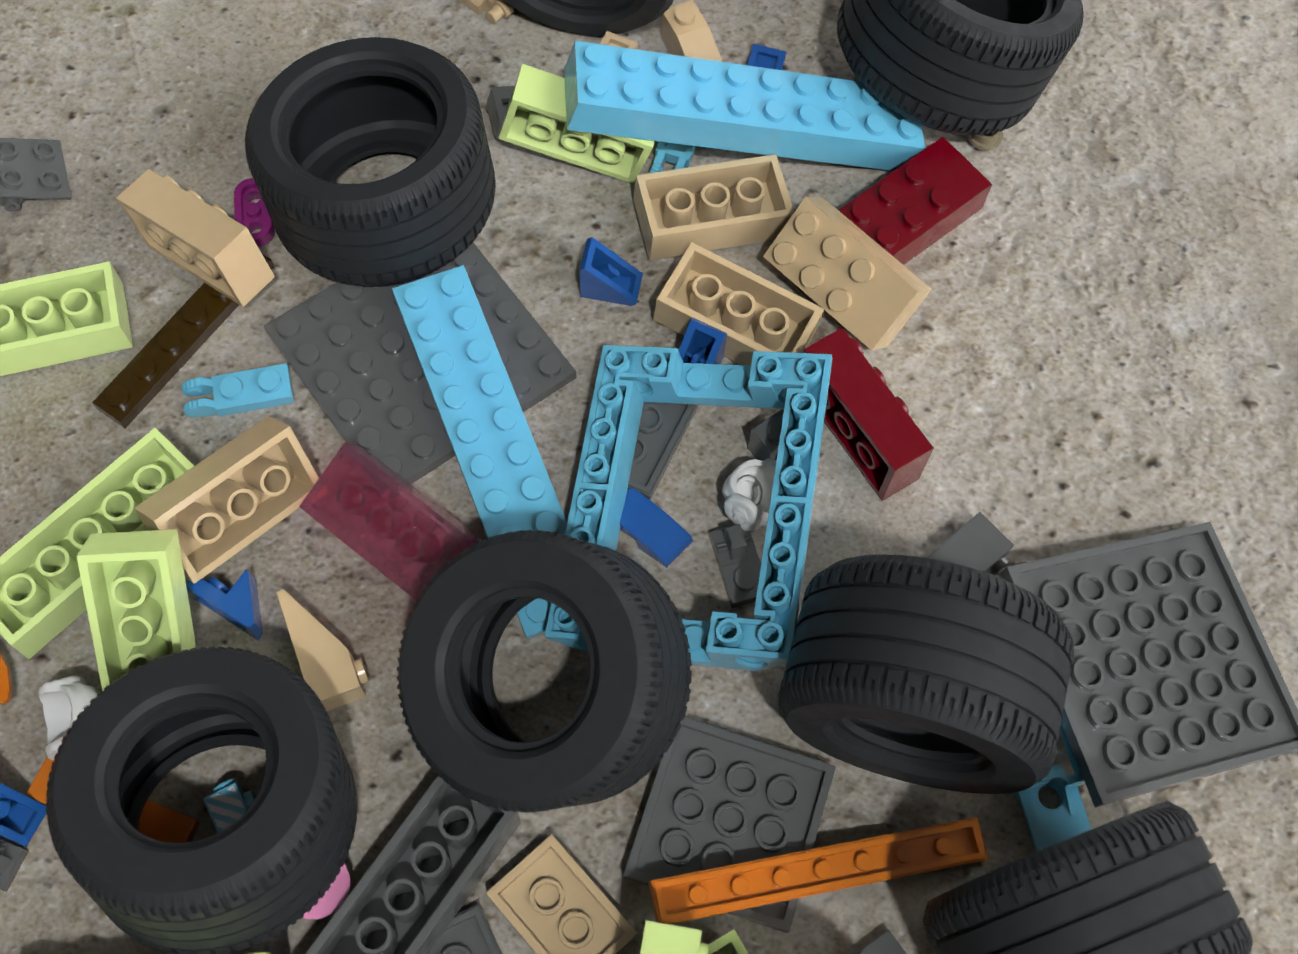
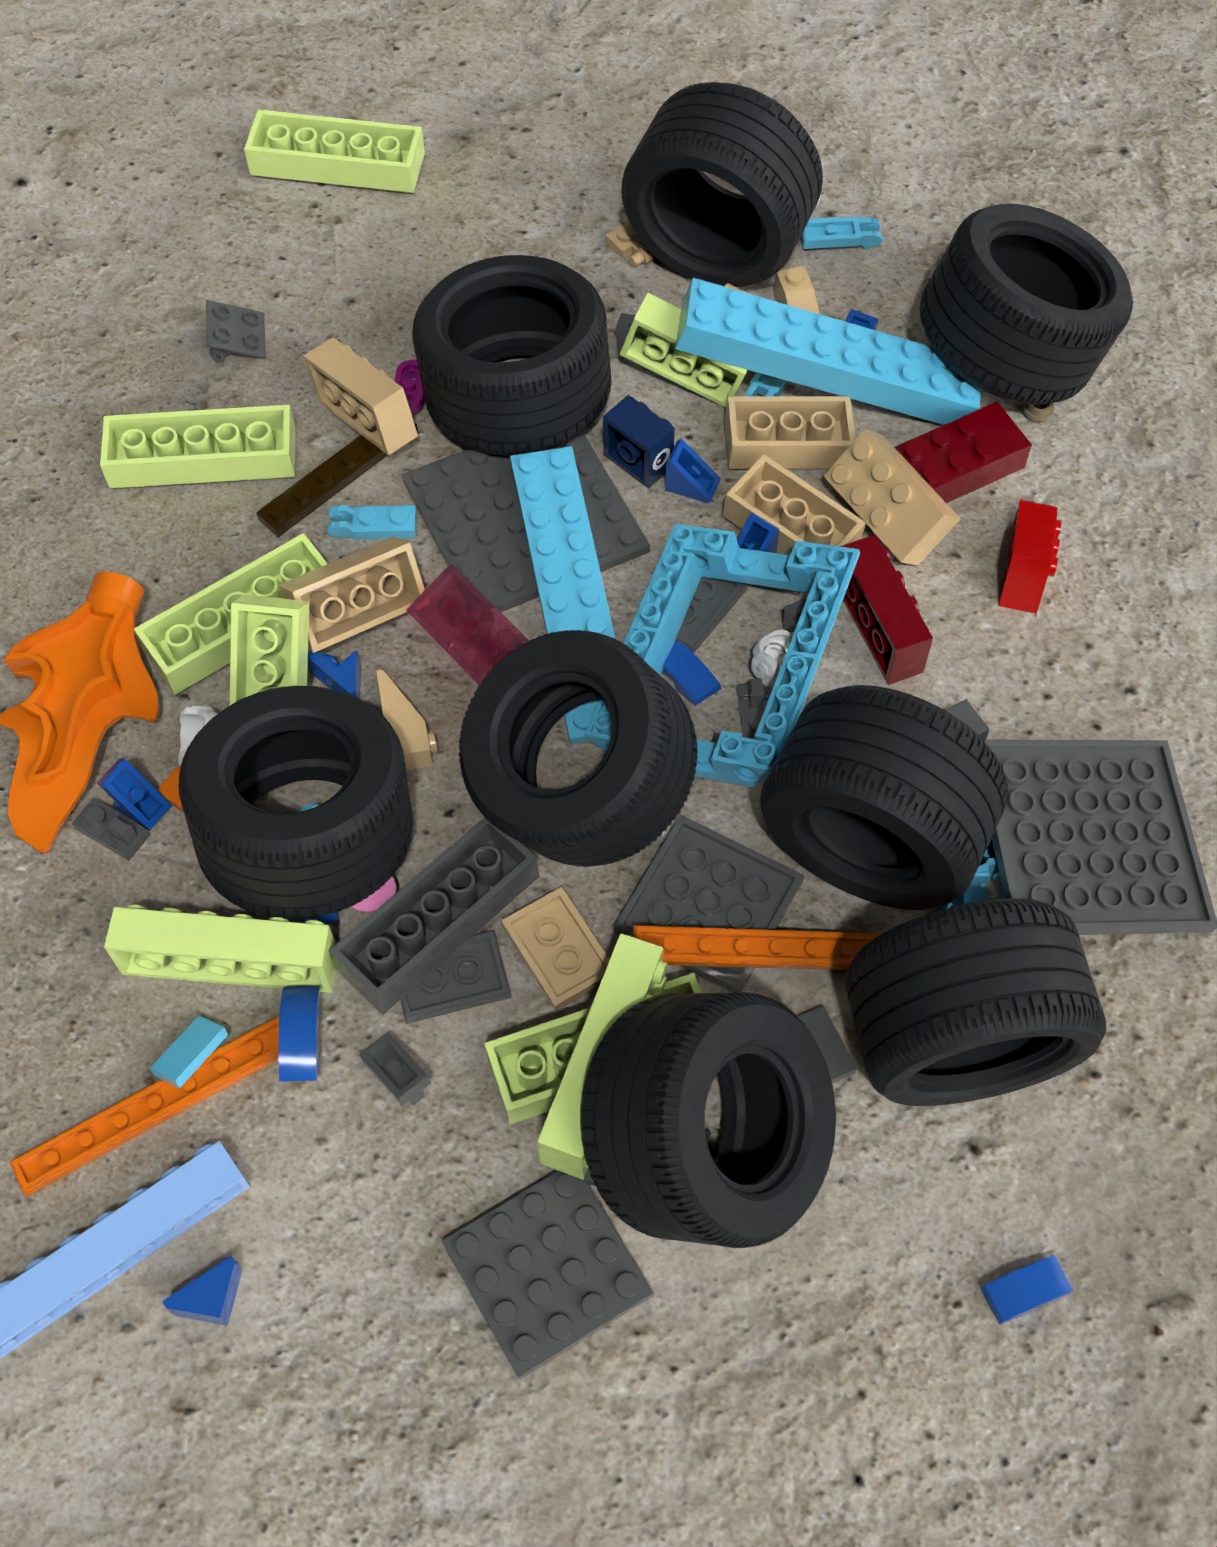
camera: 15 degrees right, 5 degrees down
(540, 244) = (637, 440): none -> dark blue brick
(1016, 317) = (1031, 556): none -> red wedge

